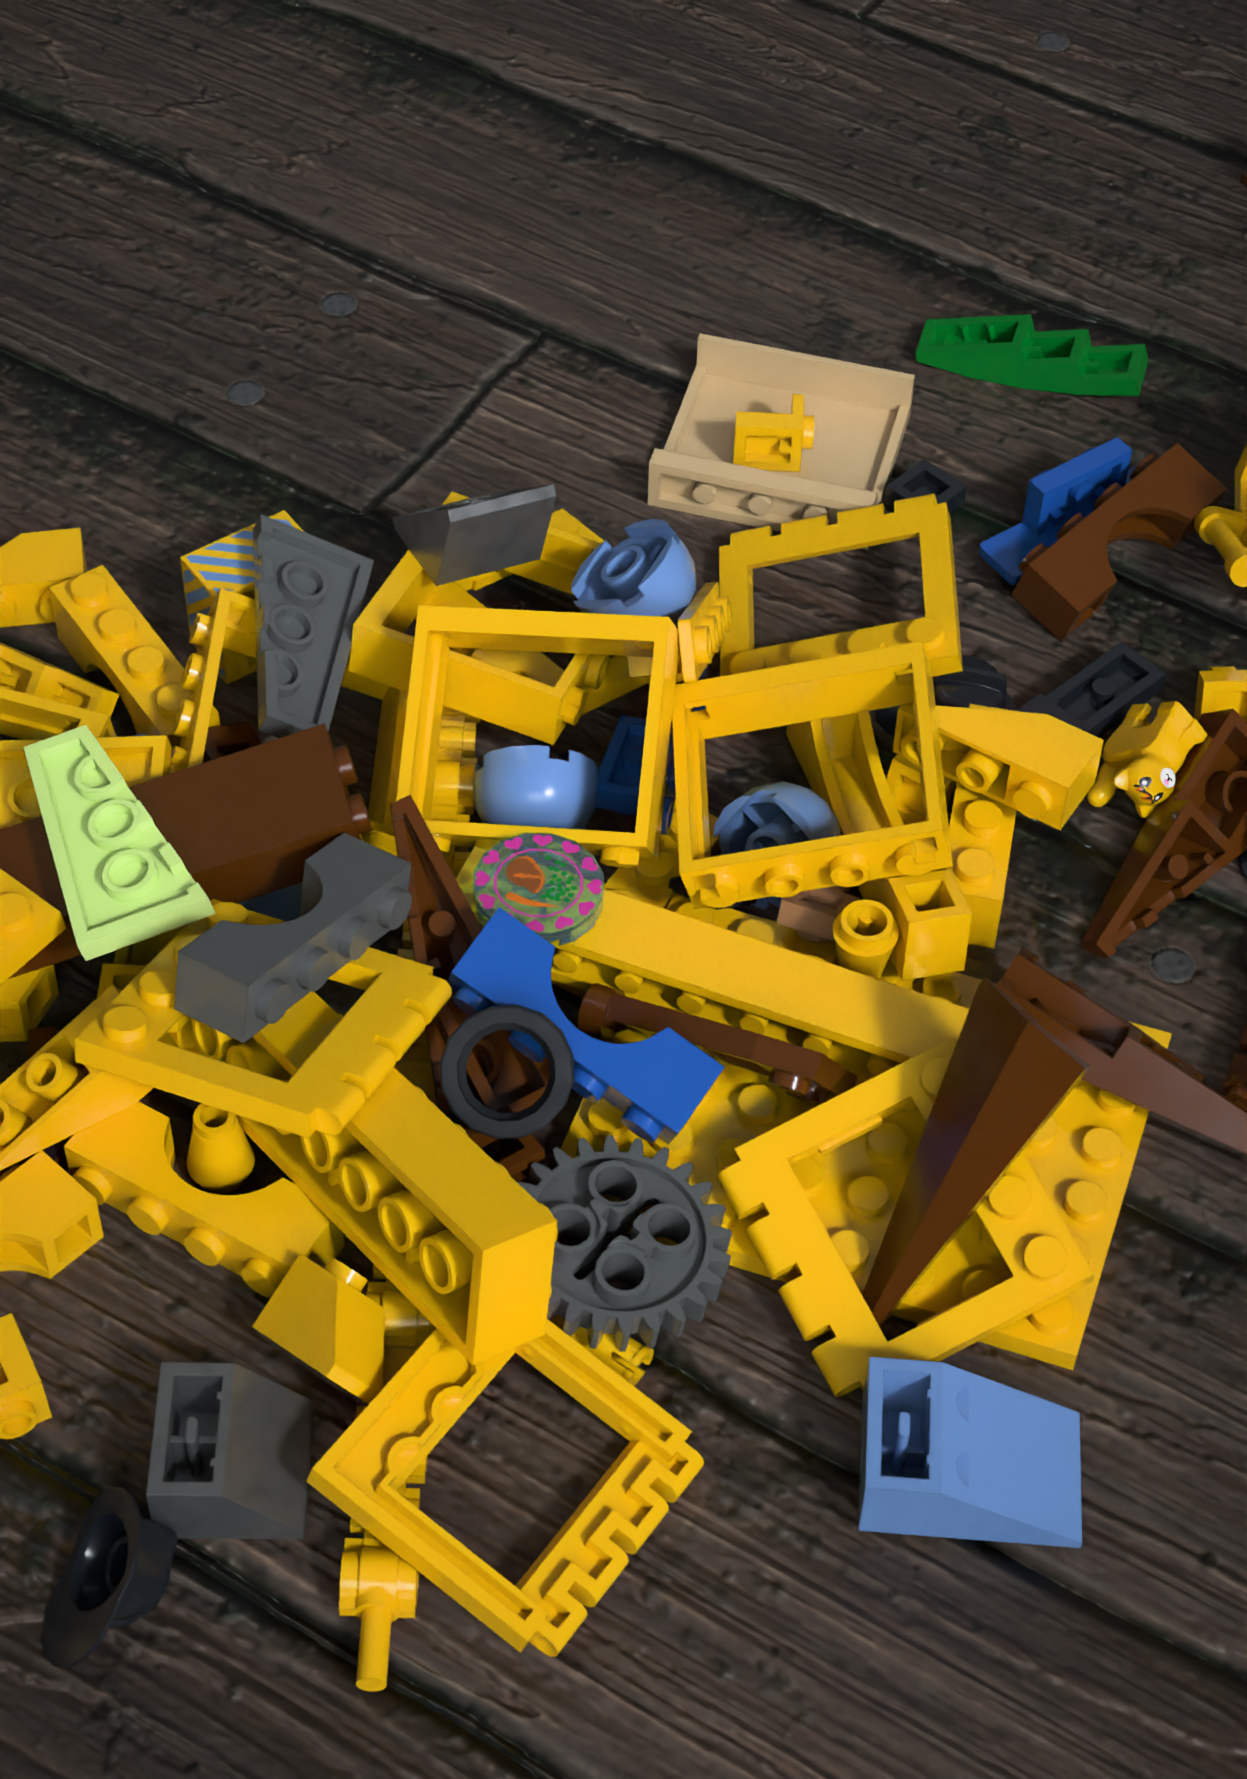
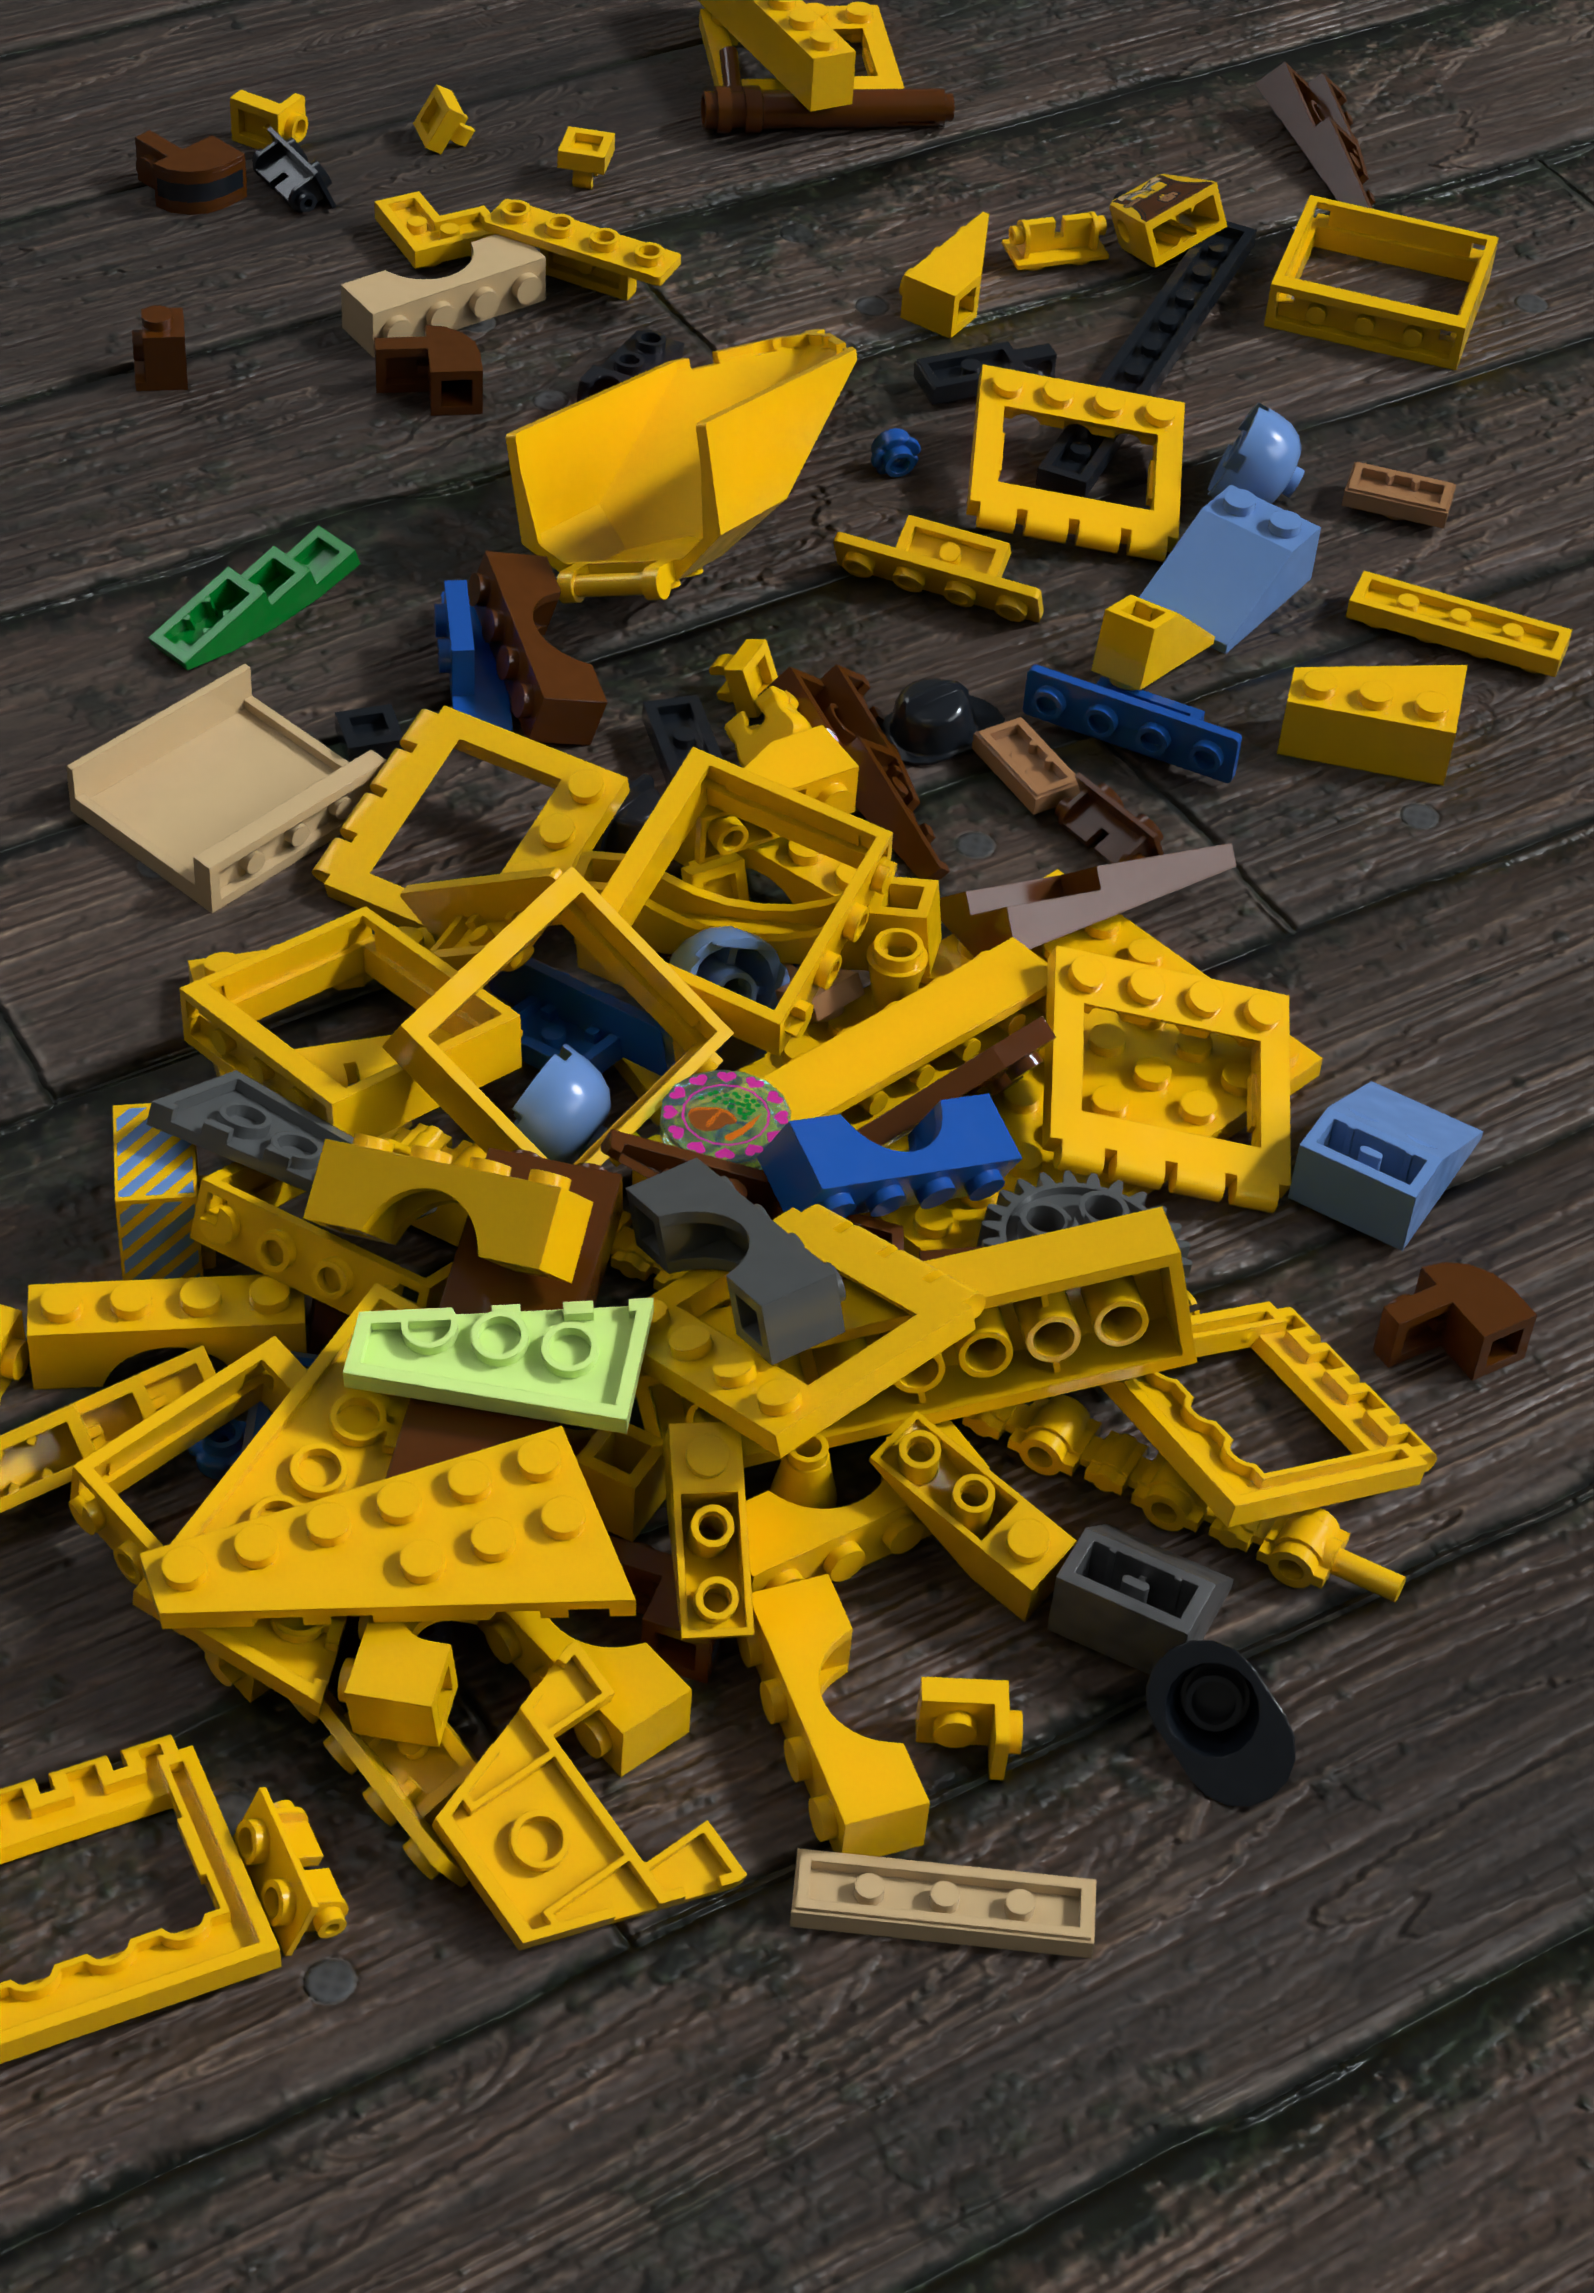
camera: 65 degrees left, 5 degrees down
(223, 1270) = (975, 1515): none -> yellow slope
(230, 758) = (517, 1222): none -> yellow arch
(329, 1324) = (1067, 1464): yellow slope -> none
(471, 1110) = (958, 1184): black tyre -> none
(479, 533) = (266, 976): flat silver slope -> none
(639, 576) = (433, 900): medium blue cylinder -> none
(773, 439) = (232, 786): yellow bracket -> none
(784, 1606) = (1464, 1312): none -> reddish brown brick
(989, 1107) = (1169, 939): reddish brown wedge -> none

